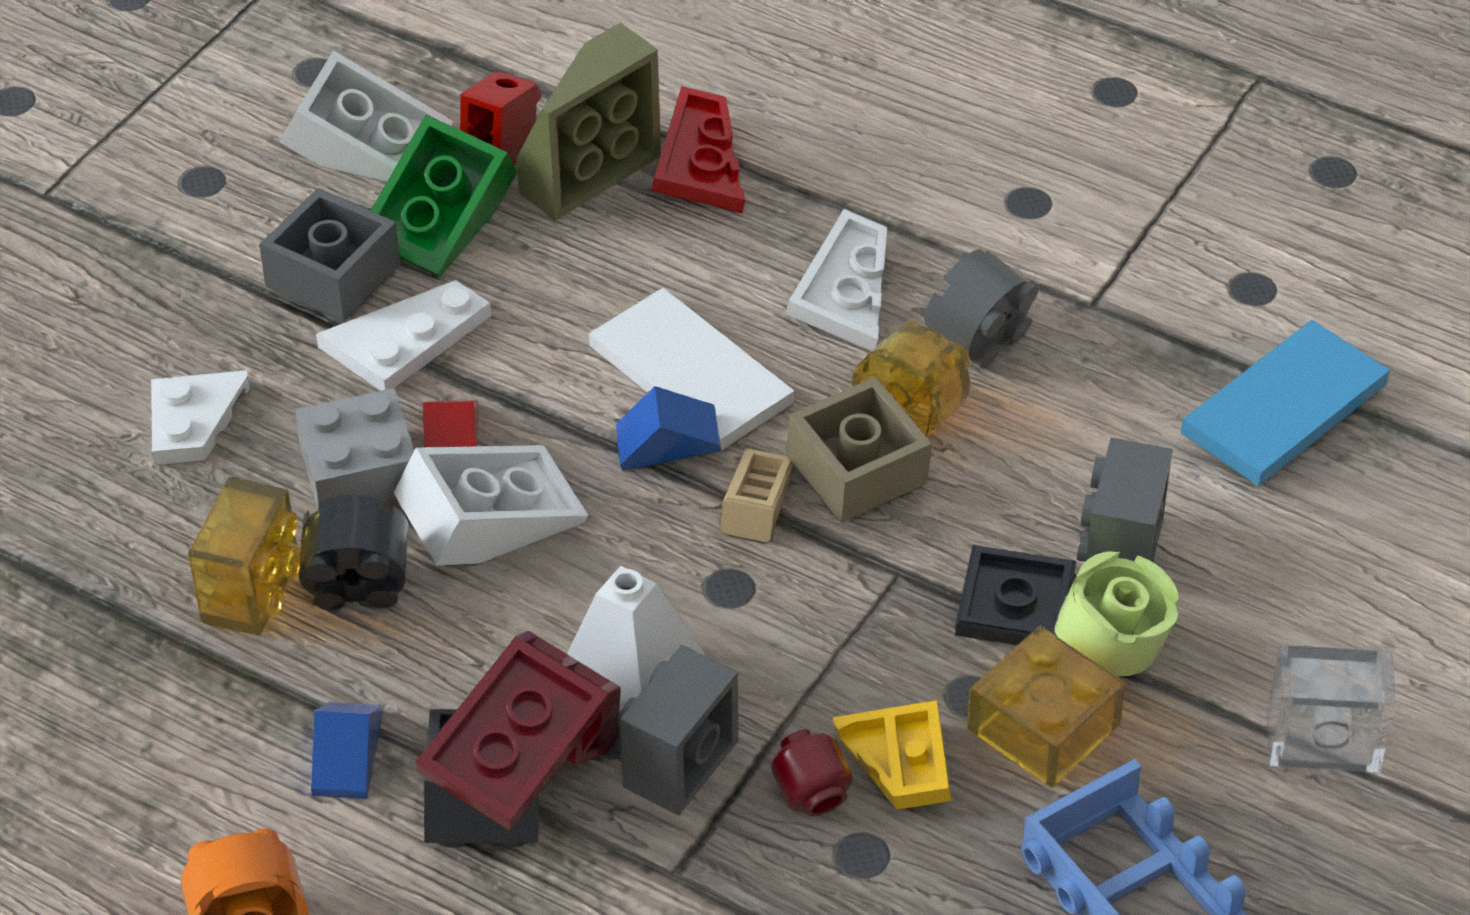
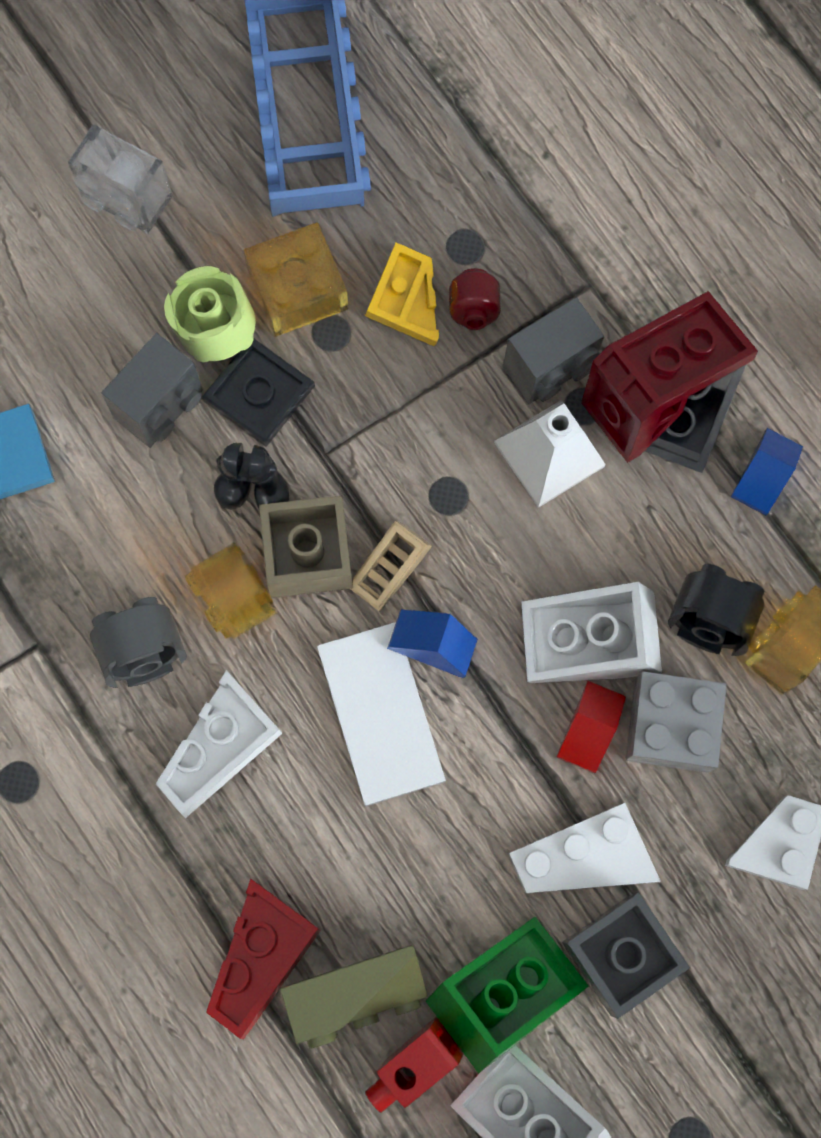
camera: 160 degrees left, 30 degrees up
(952, 453) = (241, 470): none -> black piece

